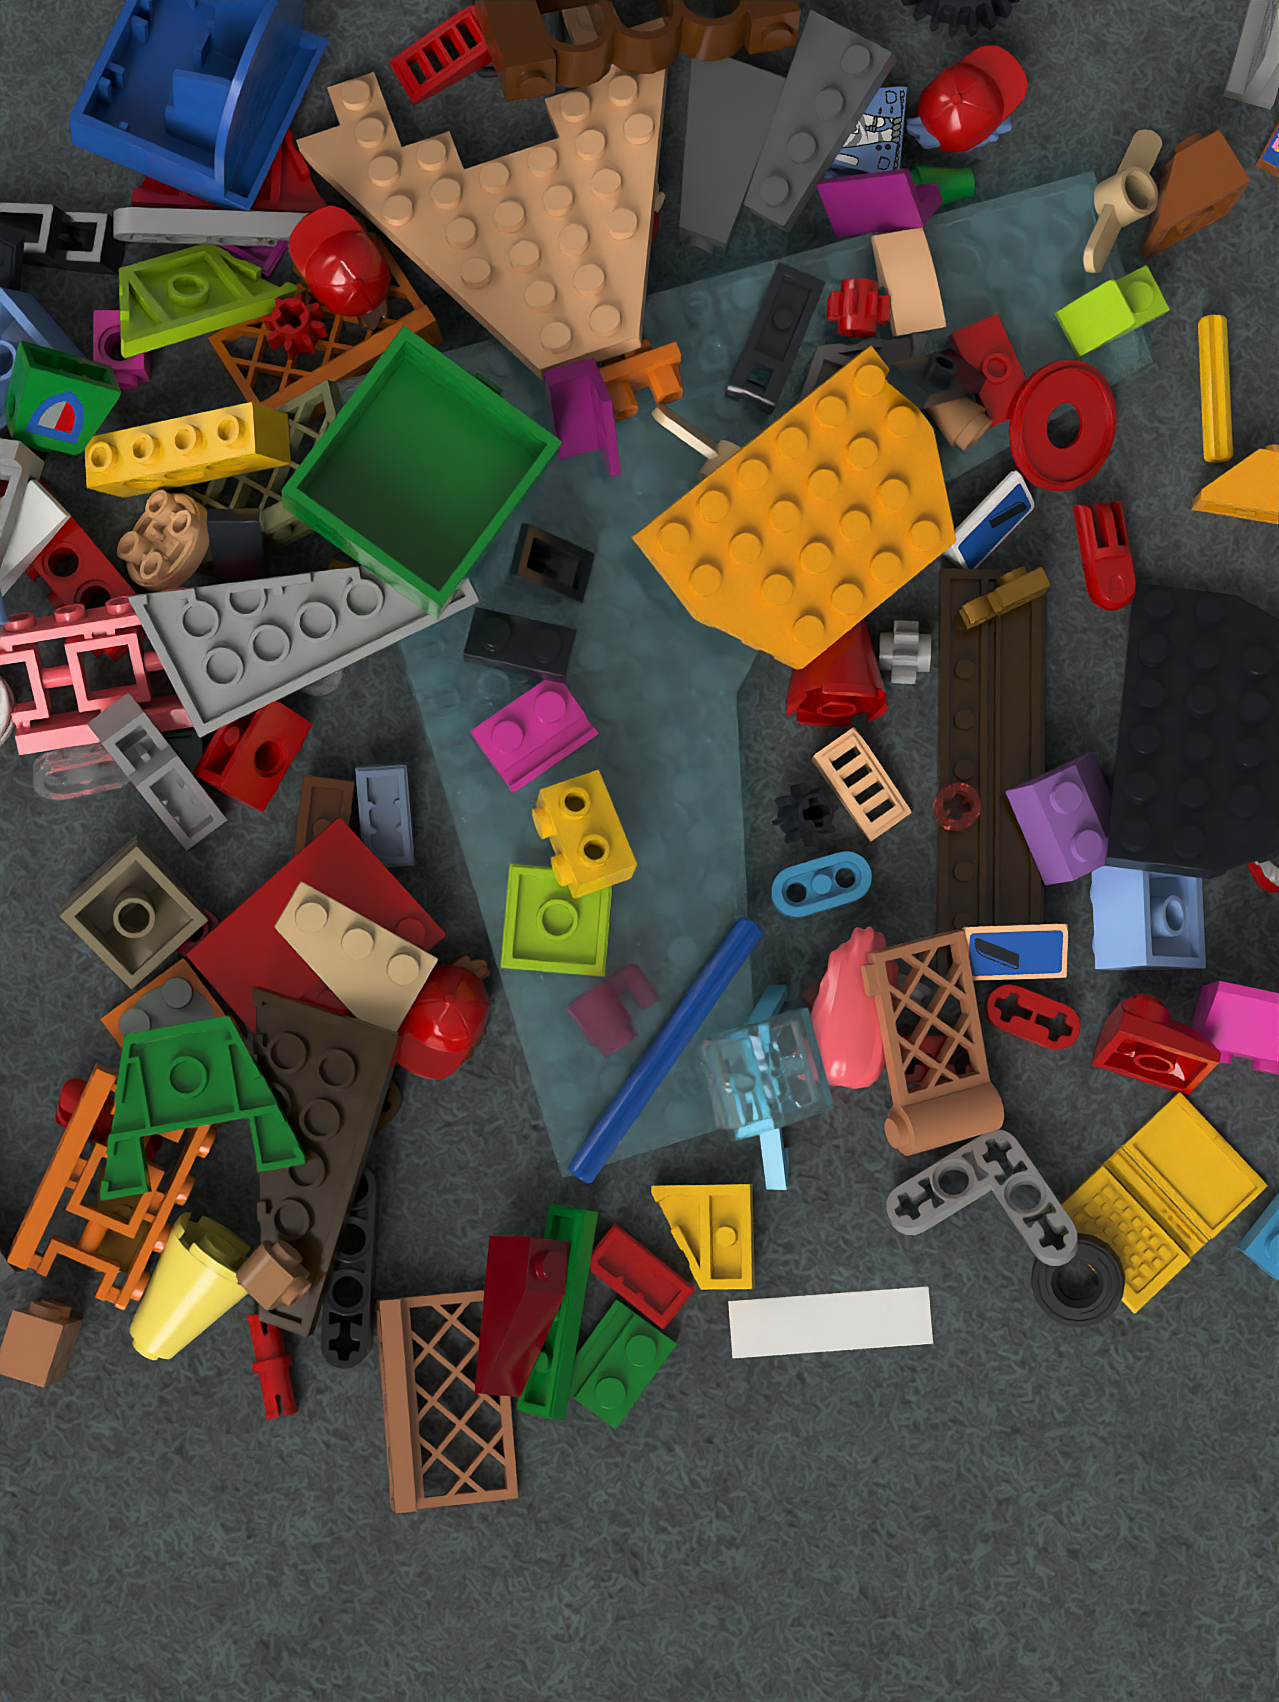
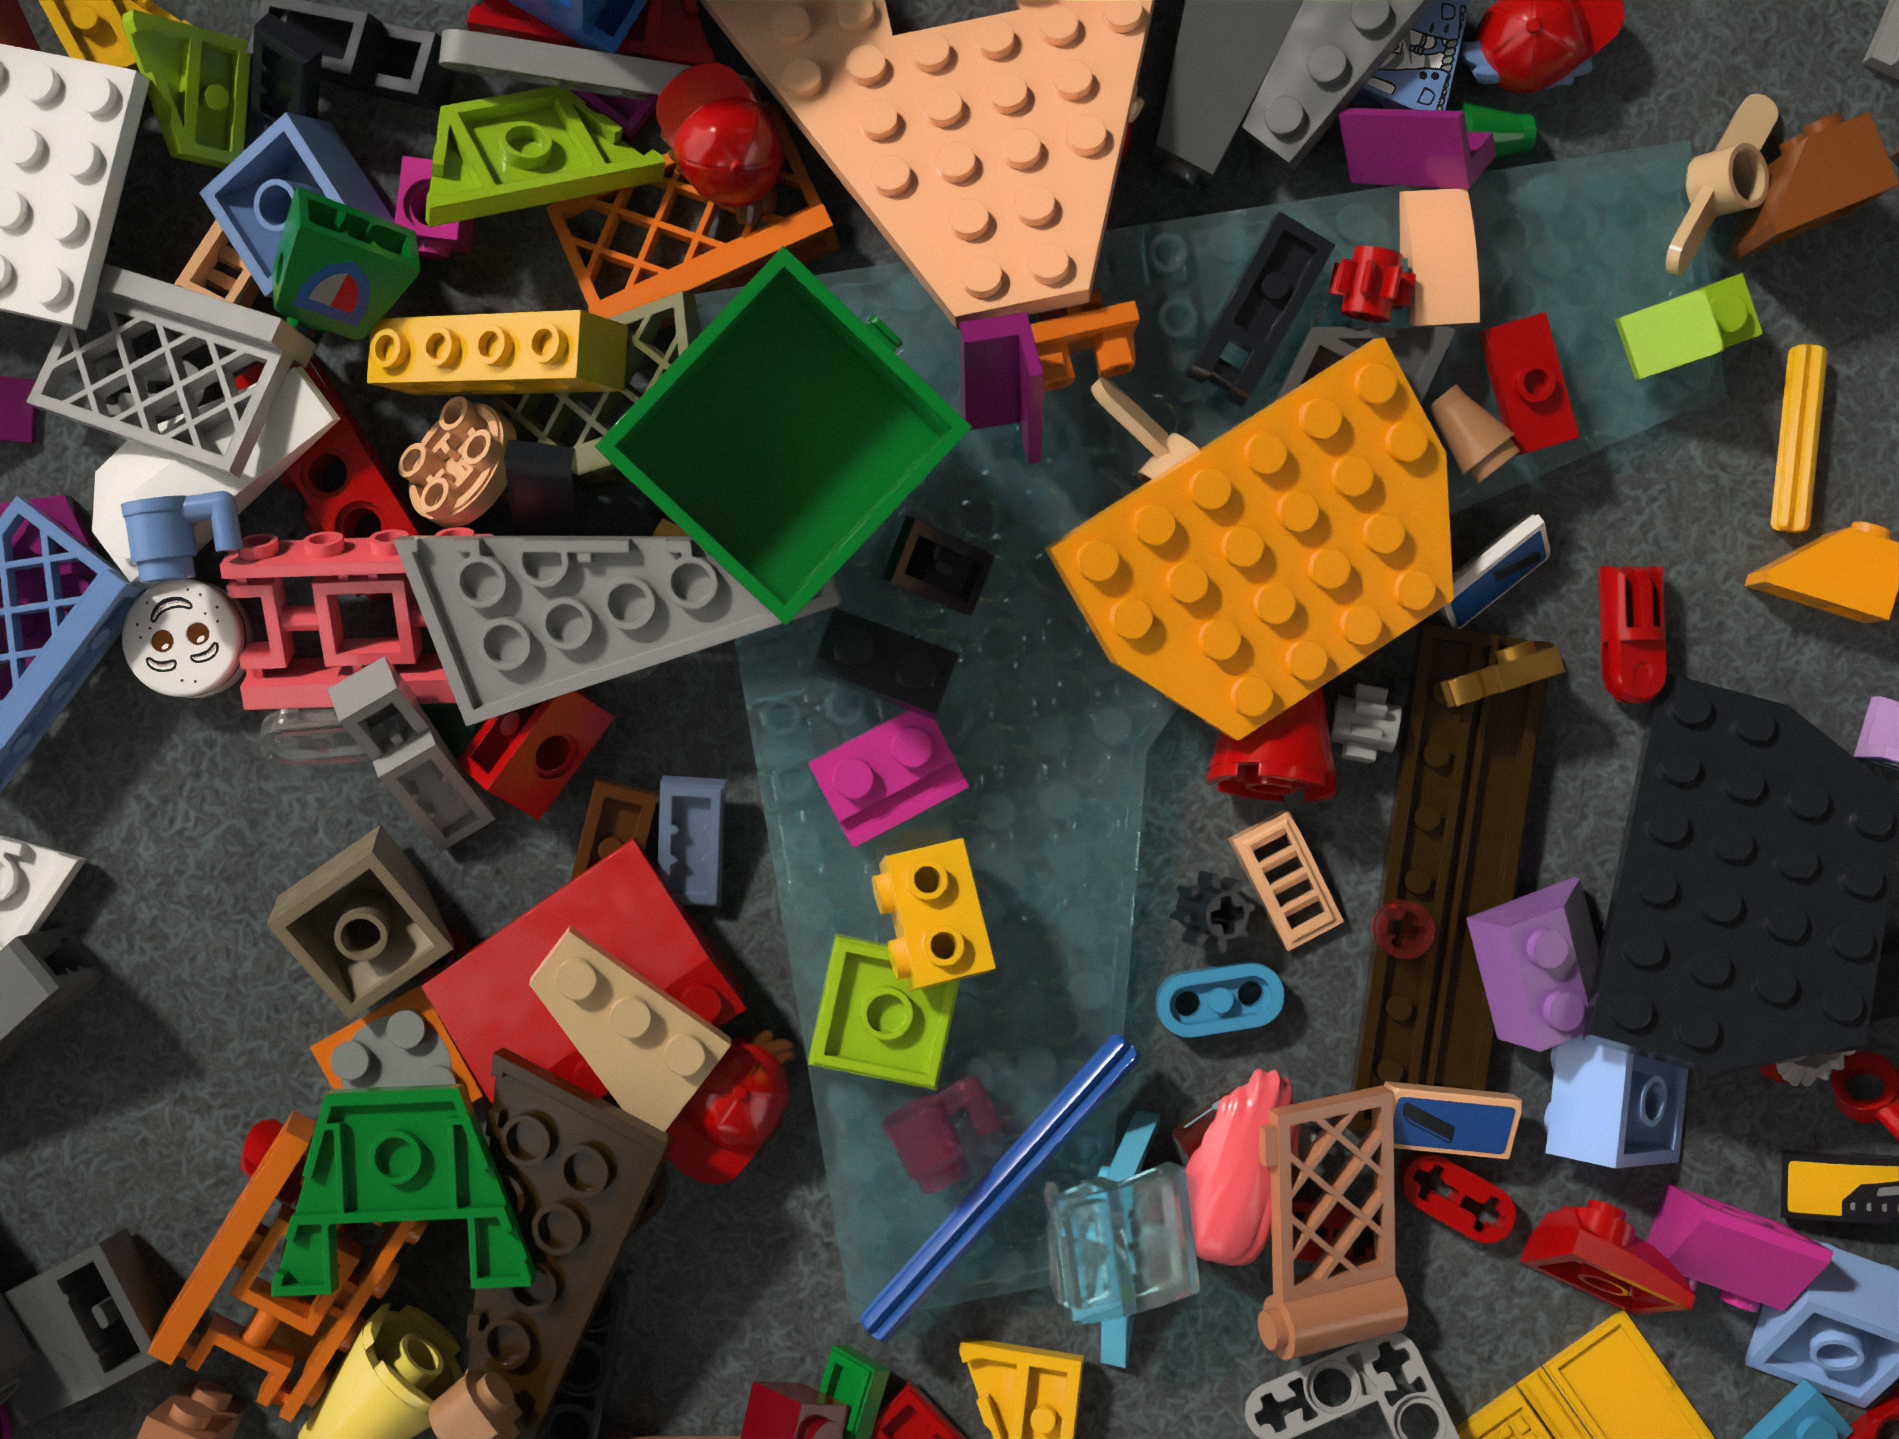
camera: 10 degrees right, 5 degrees up
(292, 312) = (649, 191): red gear -> none
(935, 378) = (1458, 389): black plate -> none
(1044, 390) = (1604, 412): red piece -> none

